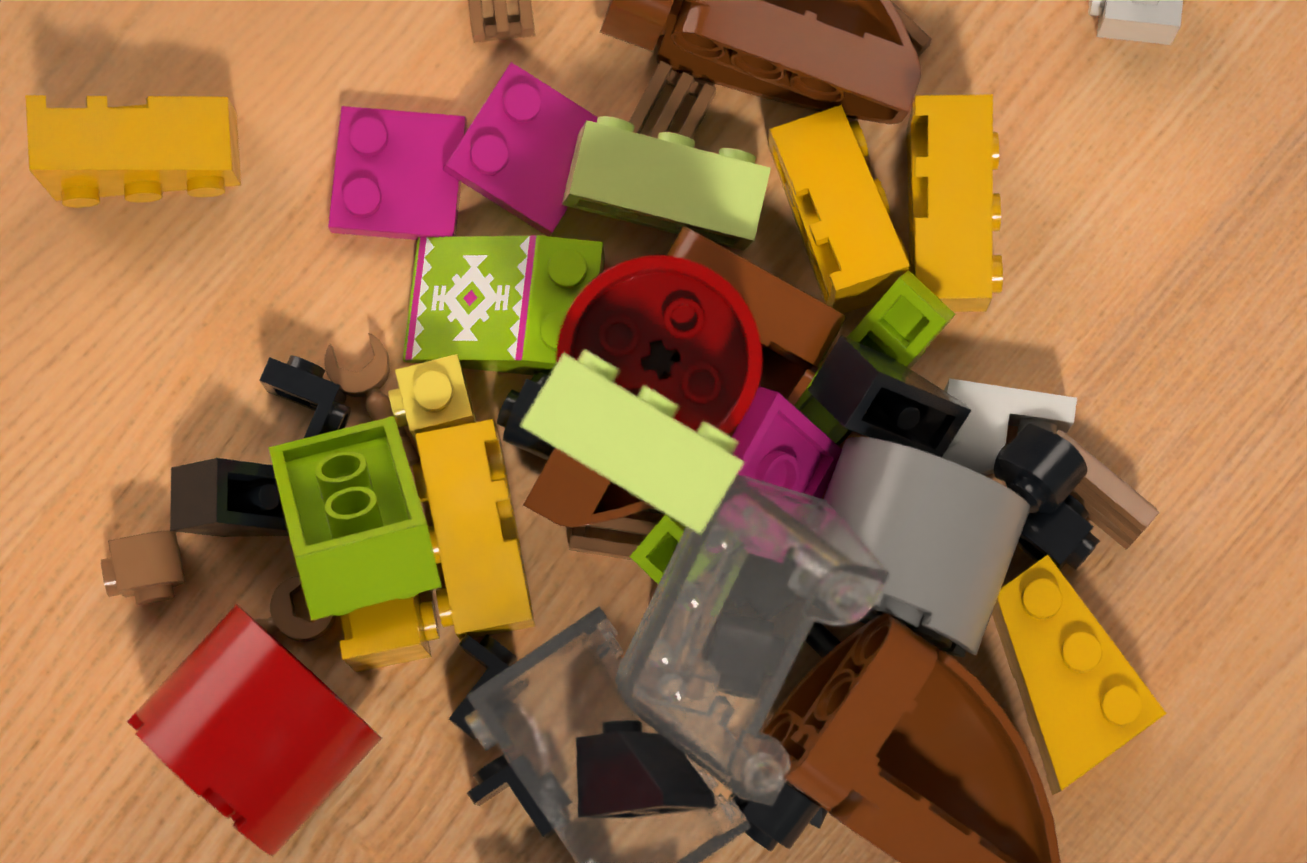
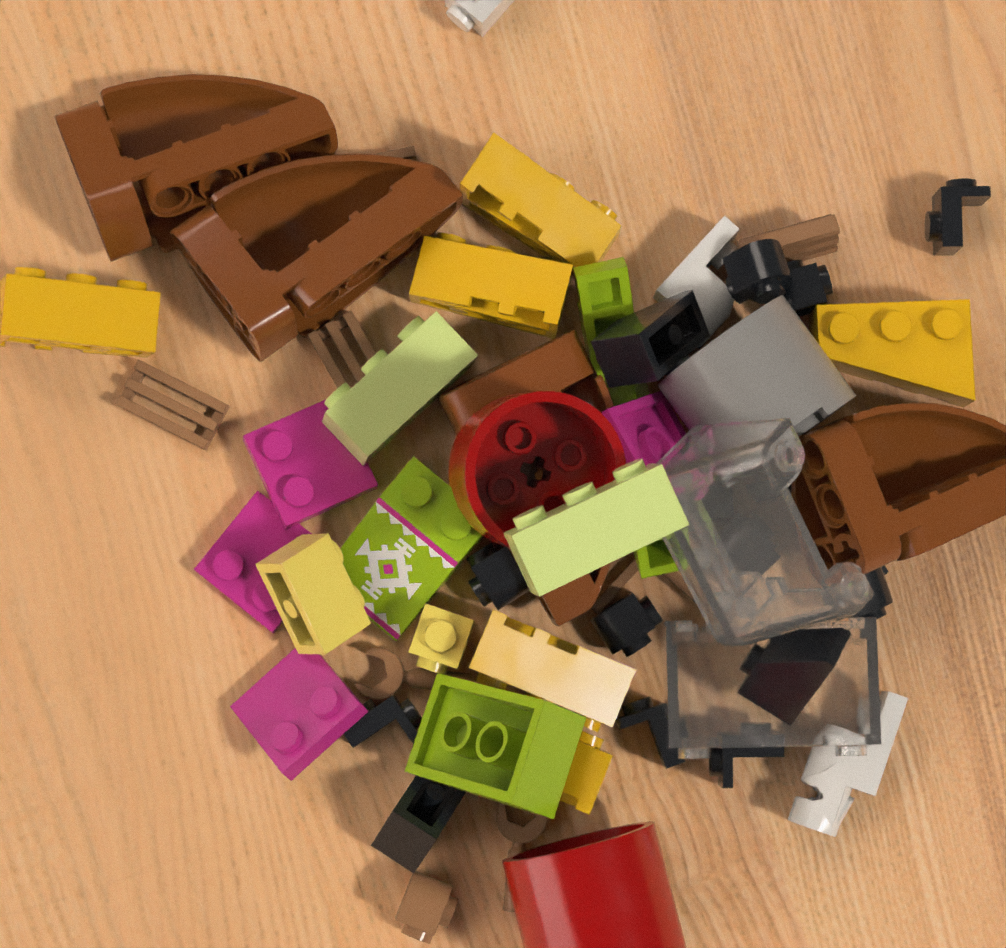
camera: 60 degrees left, 5 degrees up
(133, 148) = (131, 729): yellow wedge -> none
(264, 302) = (298, 711): none -> dark pink plate
(393, 237) = (314, 593): none -> light yellow brick
(577, 582) = (626, 624): none -> black plate
(1233, 639) = (944, 222): none -> black bracket

